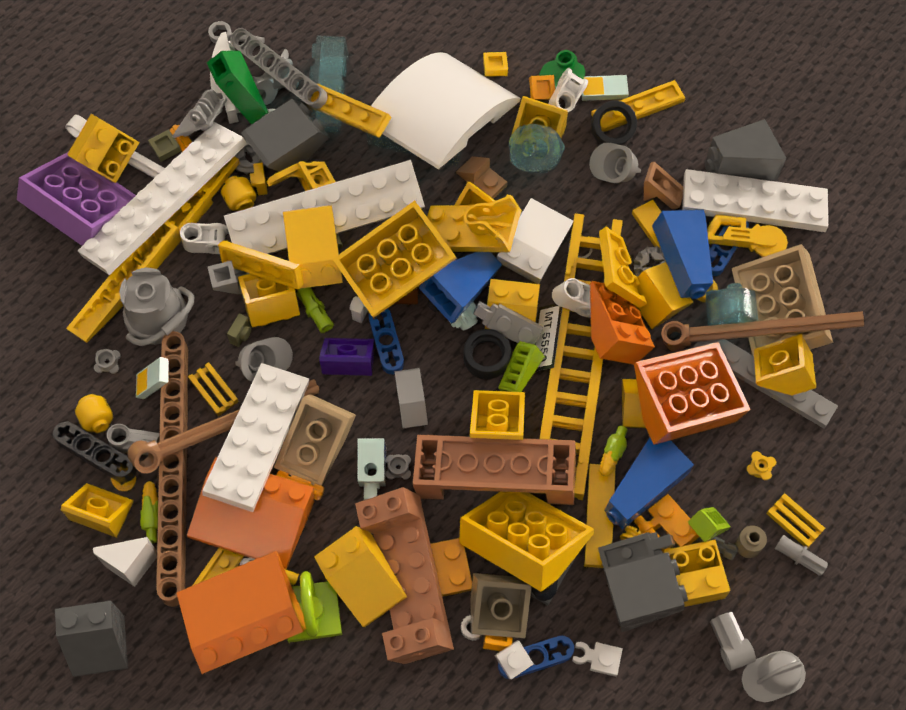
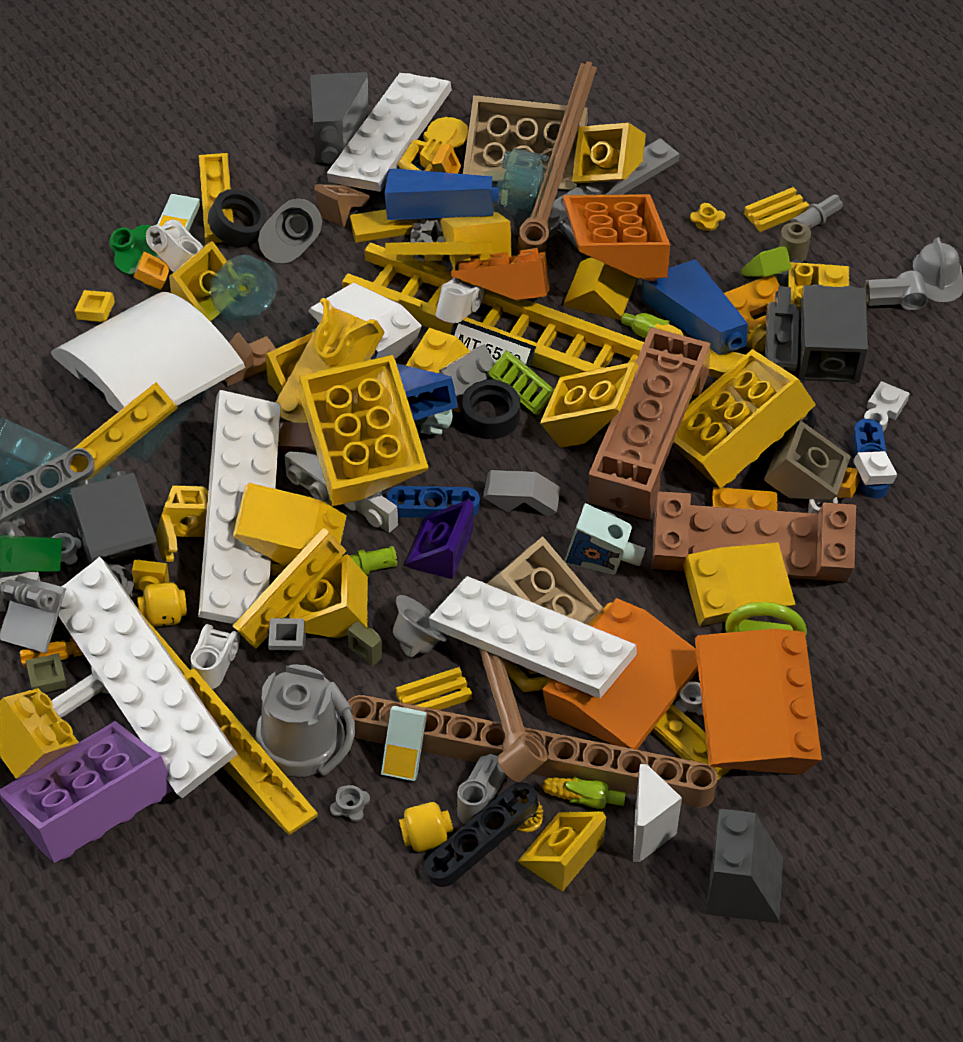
camera: 75 degrees left, 15 degrees down
(723, 248) = (446, 160): none -> light orange plate

